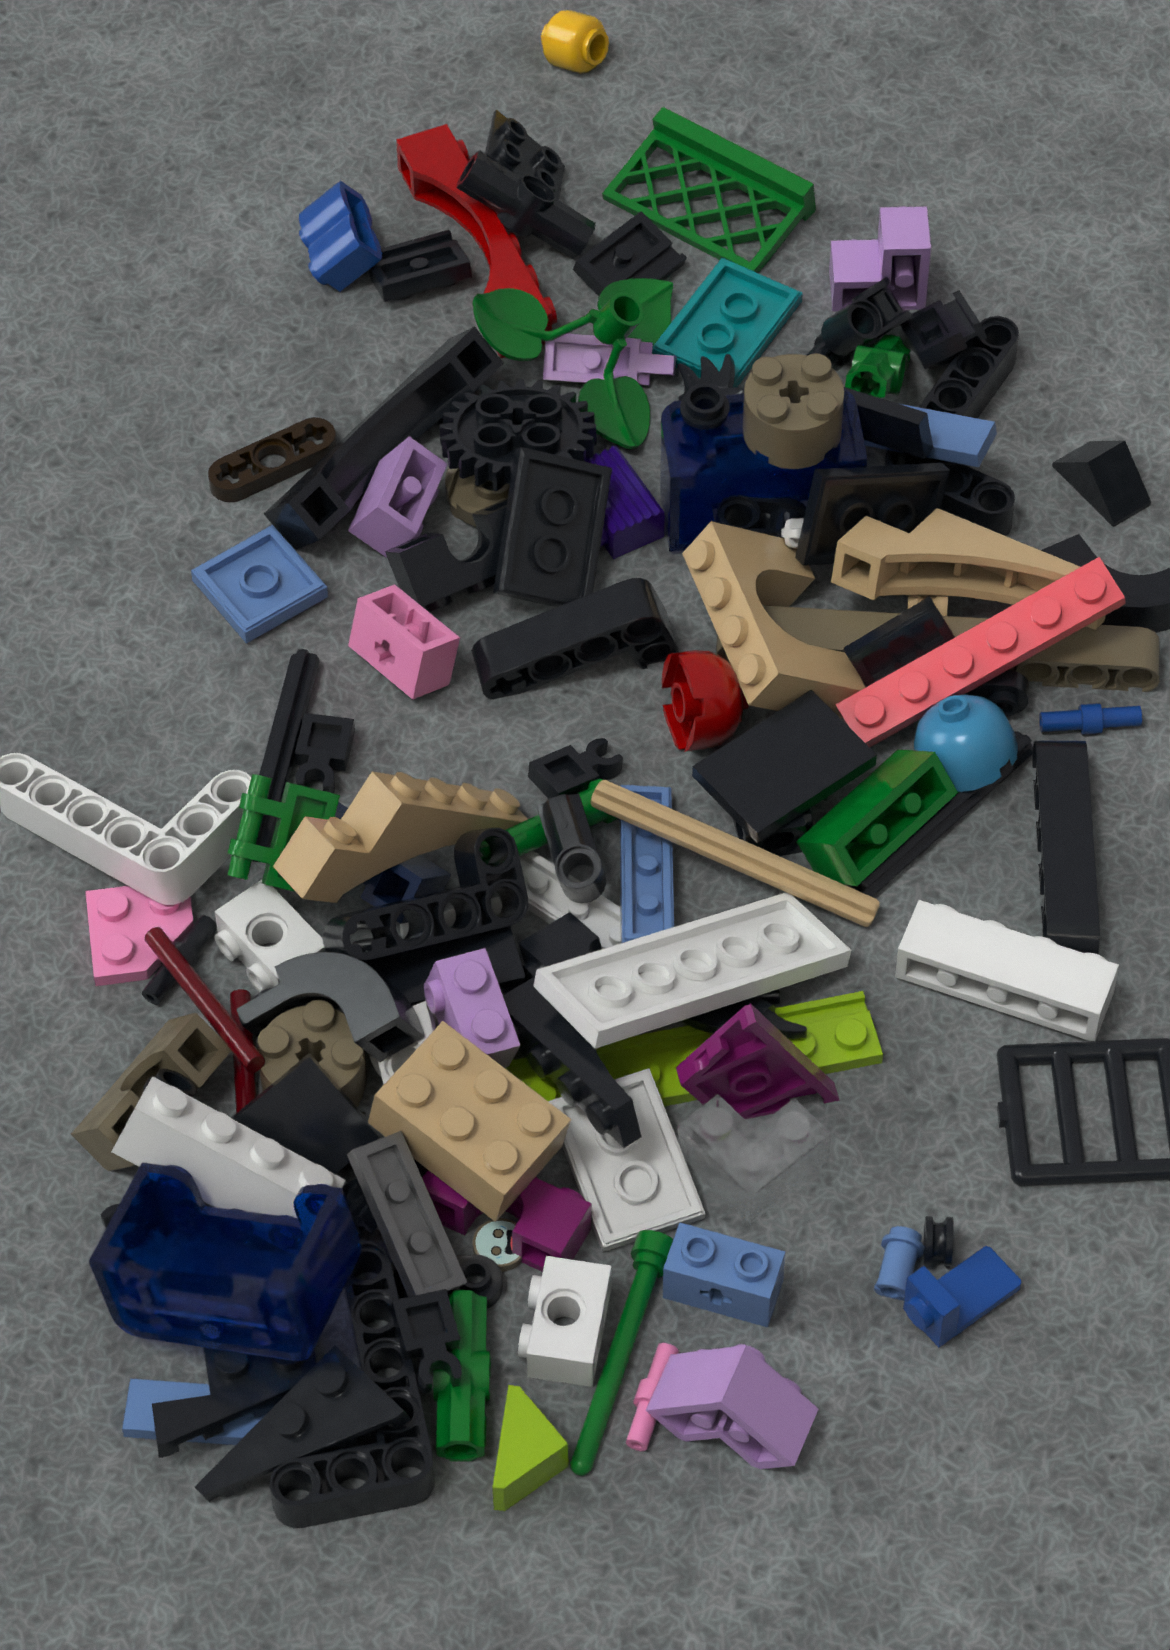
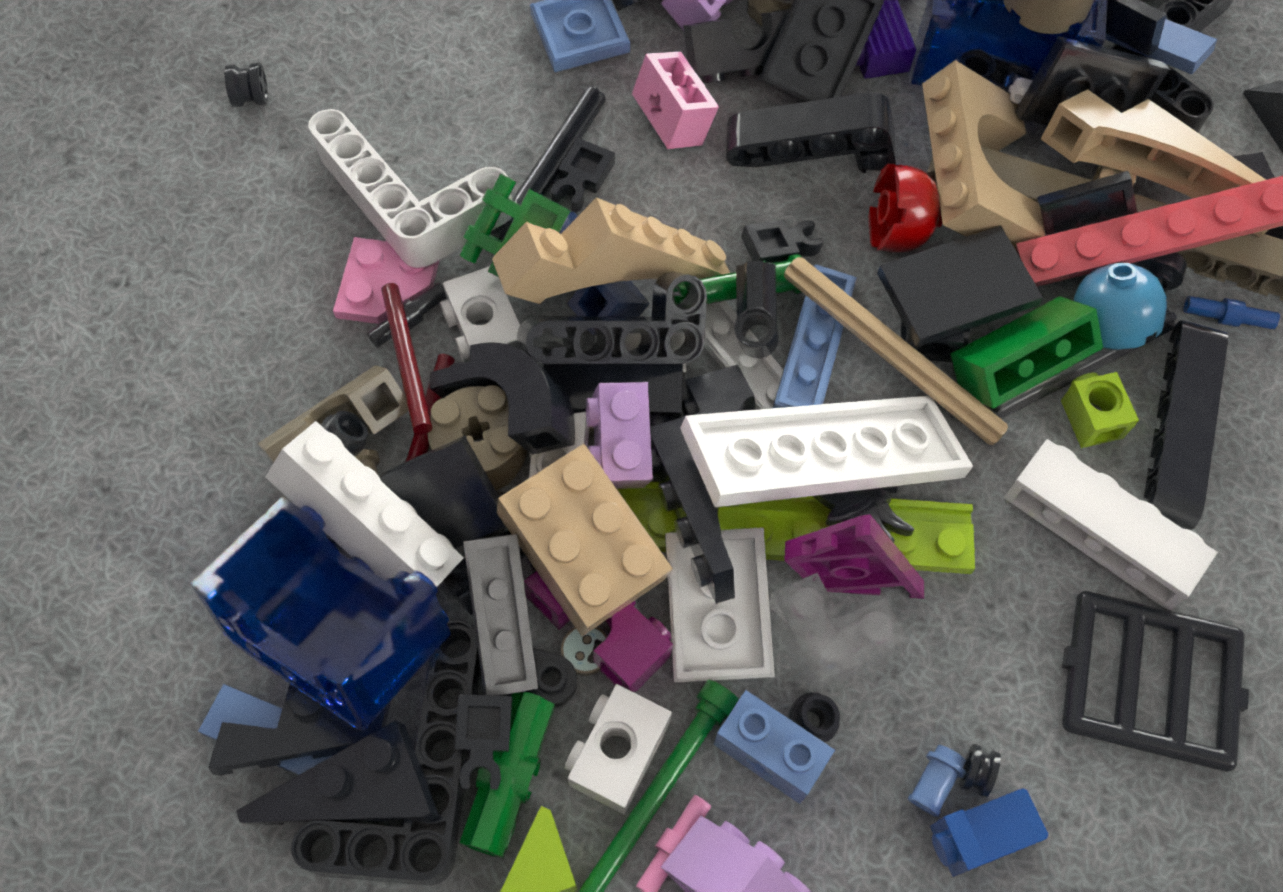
camera: 15 degrees right, 10 degrees up
(761, 1228) = (825, 710): none -> black plate
(976, 875) = (1093, 425): none -> lime brick

